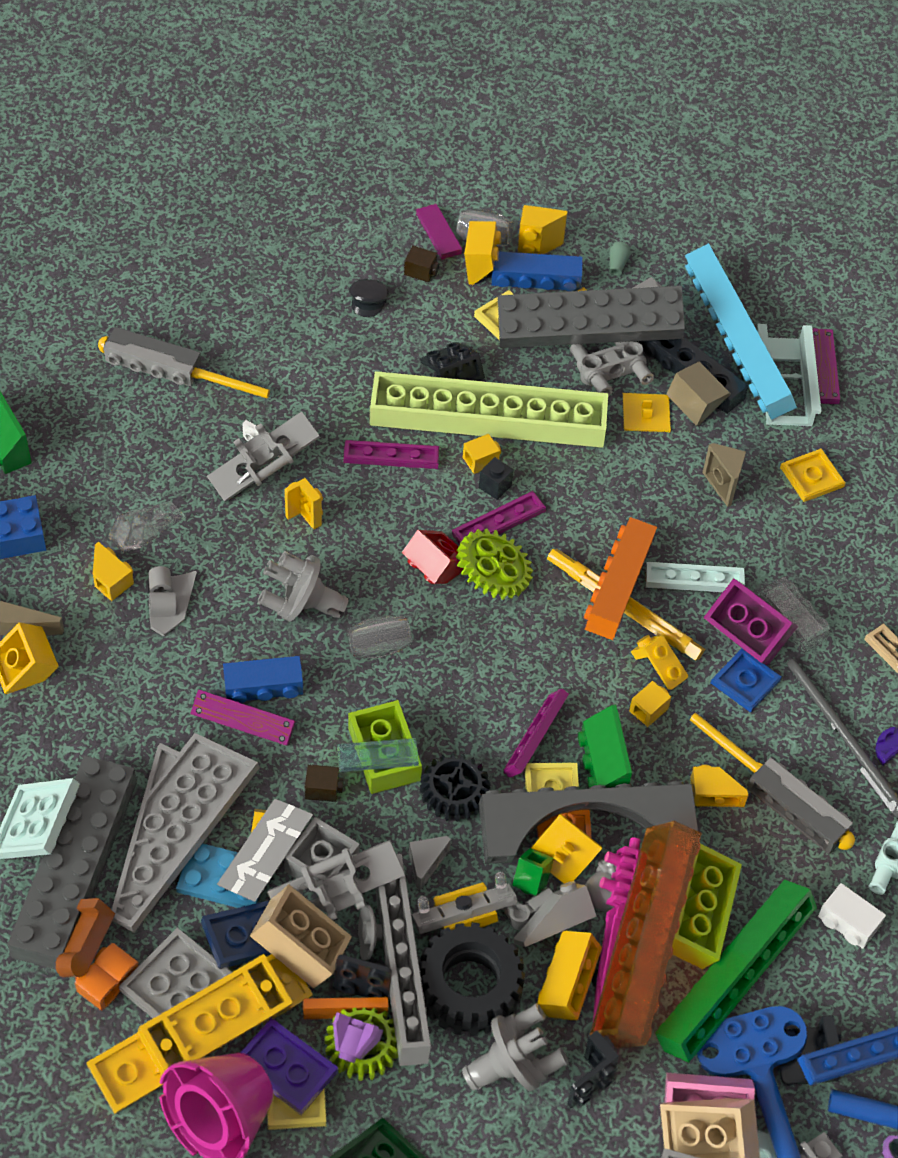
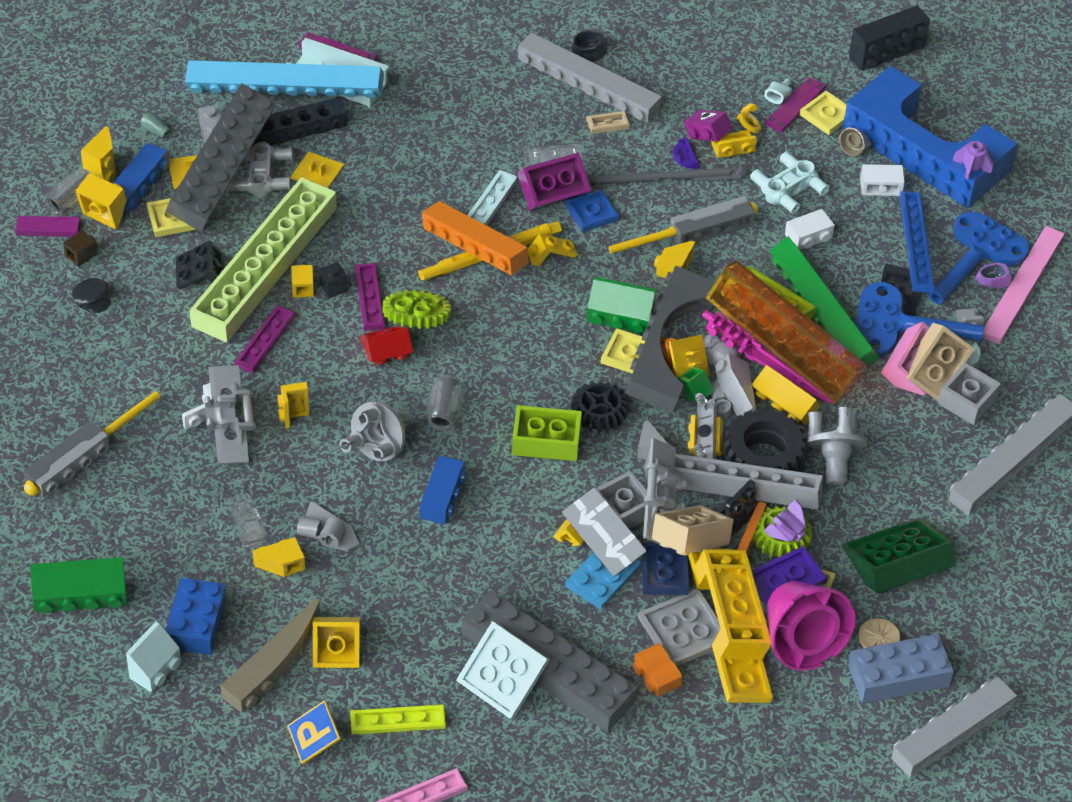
camera: 65 degrees left, 5 degrees down
(85, 939) = (626, 666): dark orange leg -> none
(178, 811) = (533, 575): light grey wing -> none
(243, 717) = (469, 515): magenta tile -> none
(323, 783) = (555, 484): dark brown brick -> none
(368, 932) = (701, 492): light grey dish -> none
(377, 755) = (561, 432): clear light blue tile -> none
(535, 733) = (578, 343): magenta tile -> none
(604, 1060) = (866, 400): black bracket -> none
(650, 703) = (586, 267): yellow brick -> none
(697, 392) = (326, 129): dark tan slope -> none
(723, 470) = (412, 142): dark tan slope -> none
(812, 475) = (434, 100): yellow tile -> none

